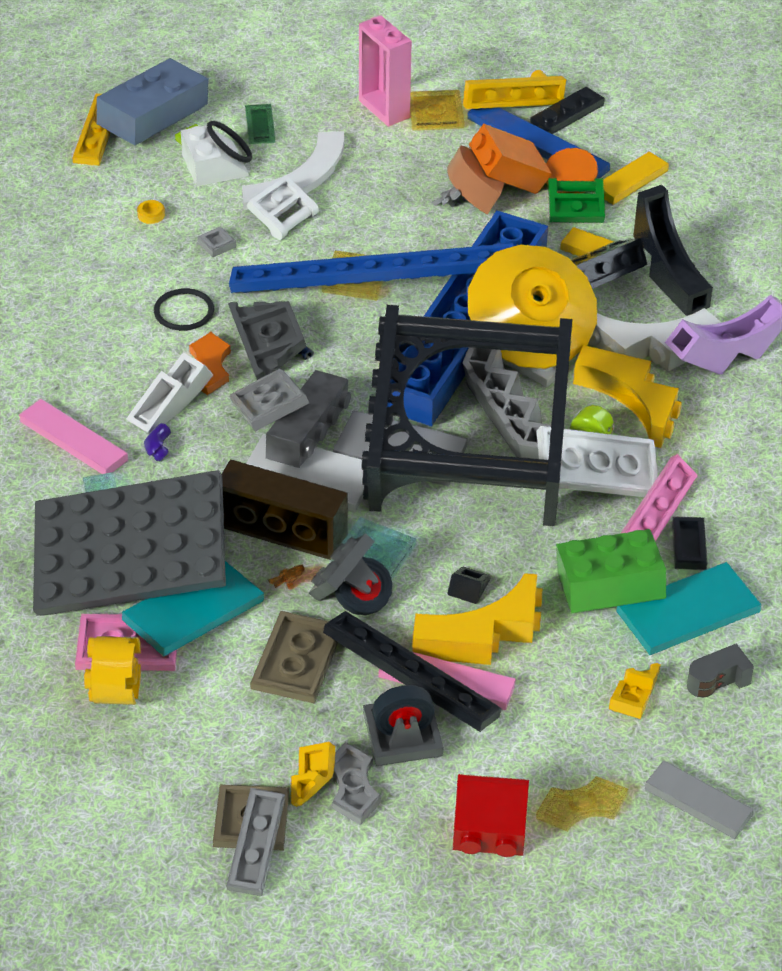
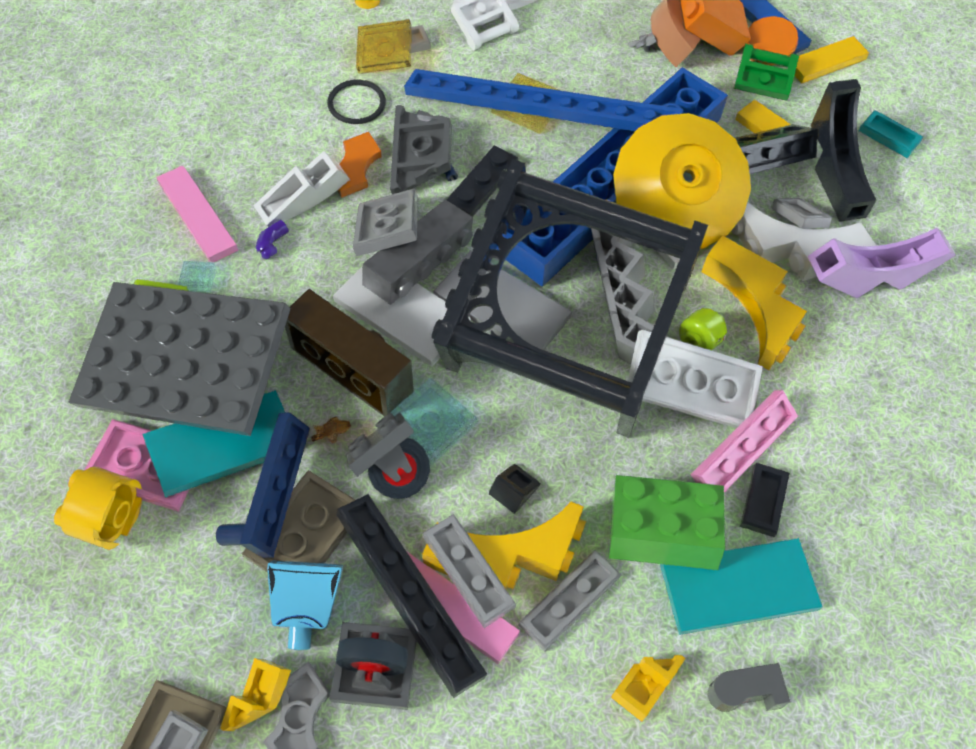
camera: 15 degrees right, 15 degrees up
(192, 253) = (384, 46): none -> clear yellow tile
(263, 630) = (272, 492): none -> dark blue piece
(322, 692) = (302, 597): none -> medium azure torso
(341, 347) = (481, 181): none -> black plate
(458, 637) = (469, 571): none -> light grey tile
(549, 651) = (569, 600): none -> light grey tile
(648, 312) = (801, 213): none -> light grey tile
(710, 231) = (890, 133): none -> teal tile

